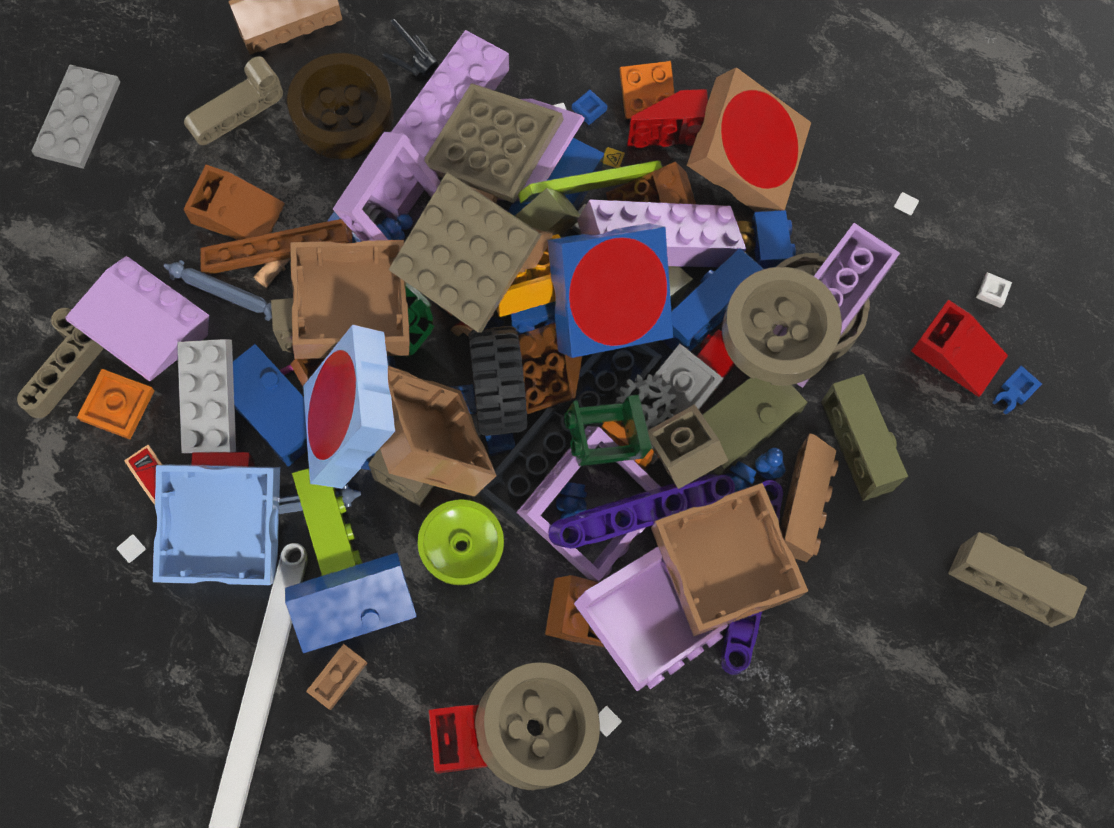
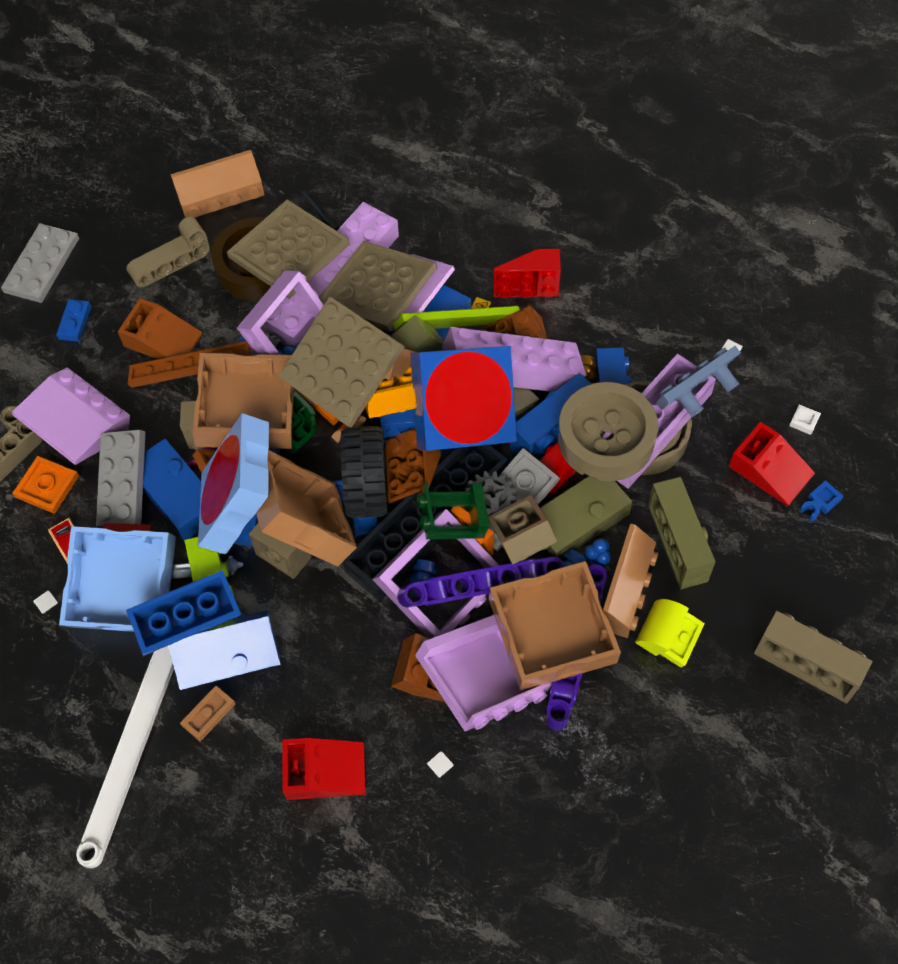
camera: 10 degrees right, 10 degrees down
(126, 191) = (73, 320): none -> blue plate
(219, 288) = (140, 397): sand blue wheel -> none
(270, 271) = (184, 385): light nougat axle -> none
(301, 568) = (183, 612): none -> blue slope
(380, 92) = (288, 242): none -> dark tan plate
(457, 523) = (323, 591): lime dish -> none
(565, 718) = (379, 733): dark tan brick -> none
(589, 106) = (464, 265): blue tile -> none
(645, 86) = (510, 245): orange plate -> none
(749, 142) = (594, 292): tile -> none
(855, 555) = (670, 631): none -> neon yellow brick
(870, 261) = (706, 369): none -> sand blue plate

